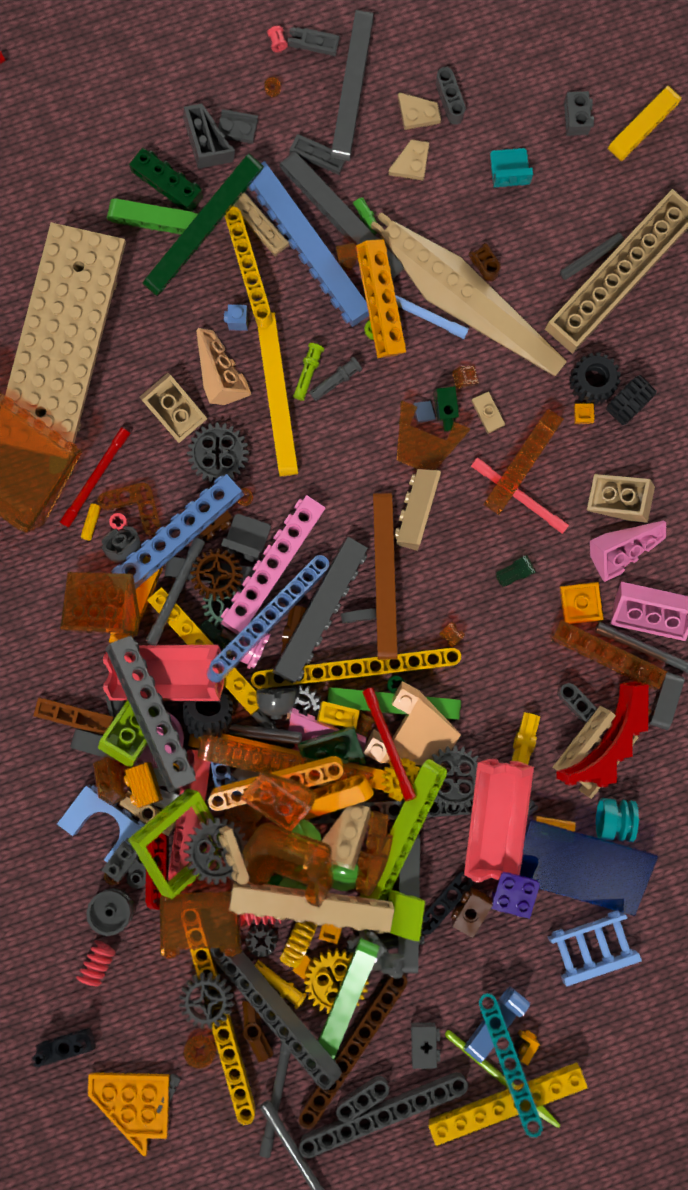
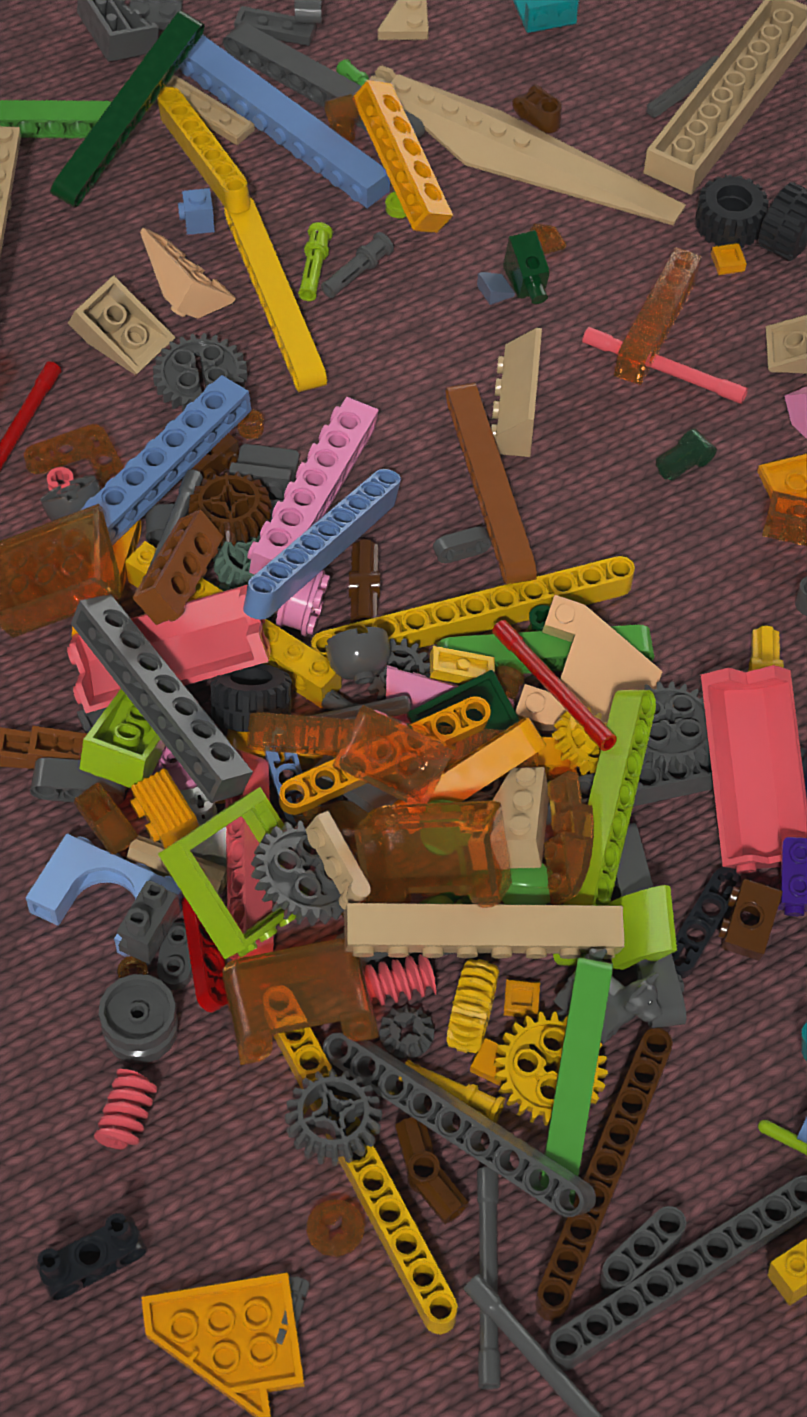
camera: 10 degrees left, 25 degrees down
(90, 522) = (17, 488): yellow axle -> none
(165, 180) = (62, 75): dark green brick -> none
(175, 623) = (178, 568): none -> dark orange brick
(319, 610) = (399, 537): dark grey brick -> none
(422, 448) = (499, 321): clear orange wing -> none
(422, 1057) = (725, 1163): dark grey brick -> none
(452, 327) = (510, 186): light blue piece -> none
(452, 634) = (610, 545): clear orange wheel -> none
(488, 412) = (589, 276): tan plate -> none

